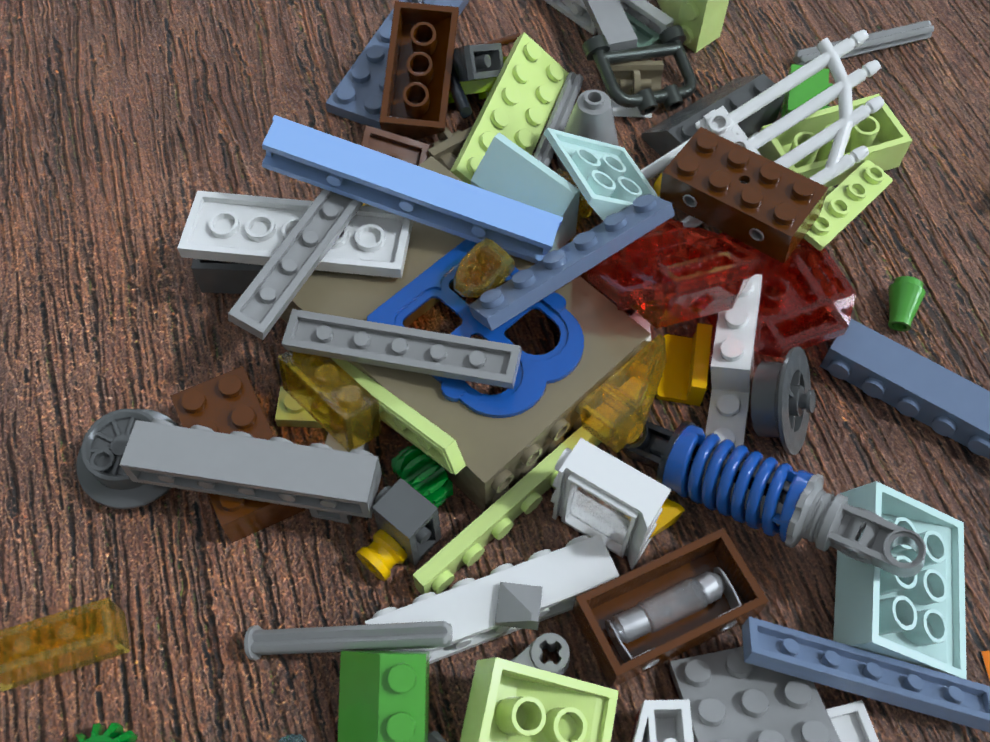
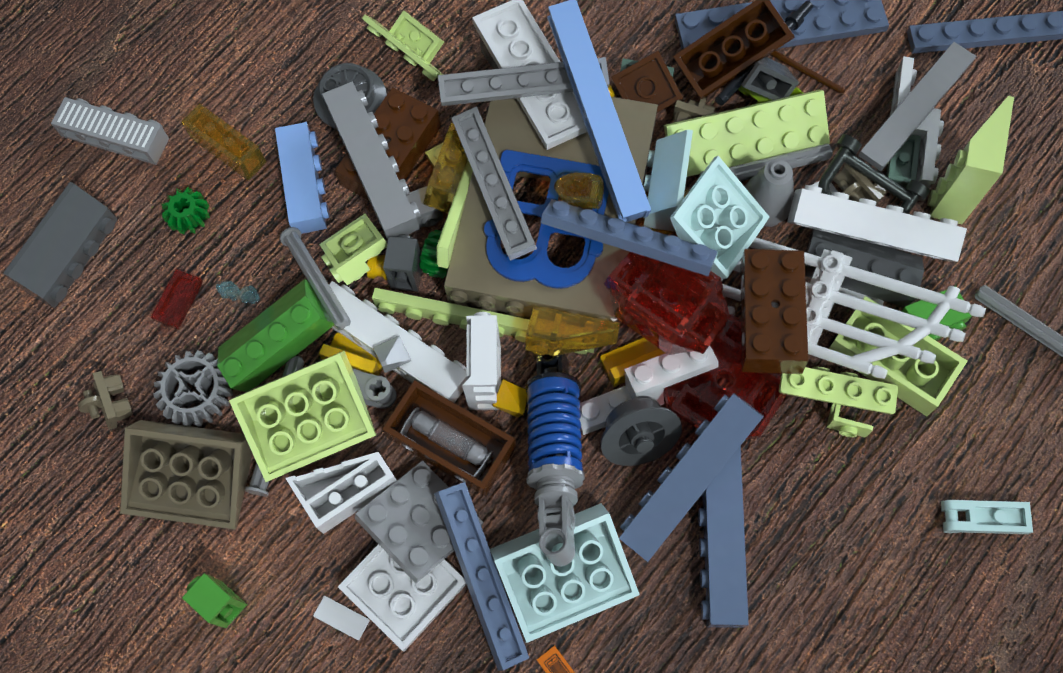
camera: 60 degrees right, 10 degrees up
(122, 345) = (413, 39): none -> yellowish green bracket
(186, 578) = (301, 179): none -> light blue brick
(342, 570) = (351, 248): none -> yellowish green plate
(456, 671) = (356, 355): none -> yellow panel
(686, 82) = (876, 224): none -> white brick
(869, 231) = (847, 427): none -> yellowish green bracket
(875, 378) = (690, 477): none -> sand blue brick
(904, 301) = (793, 476): bright green cone -> none

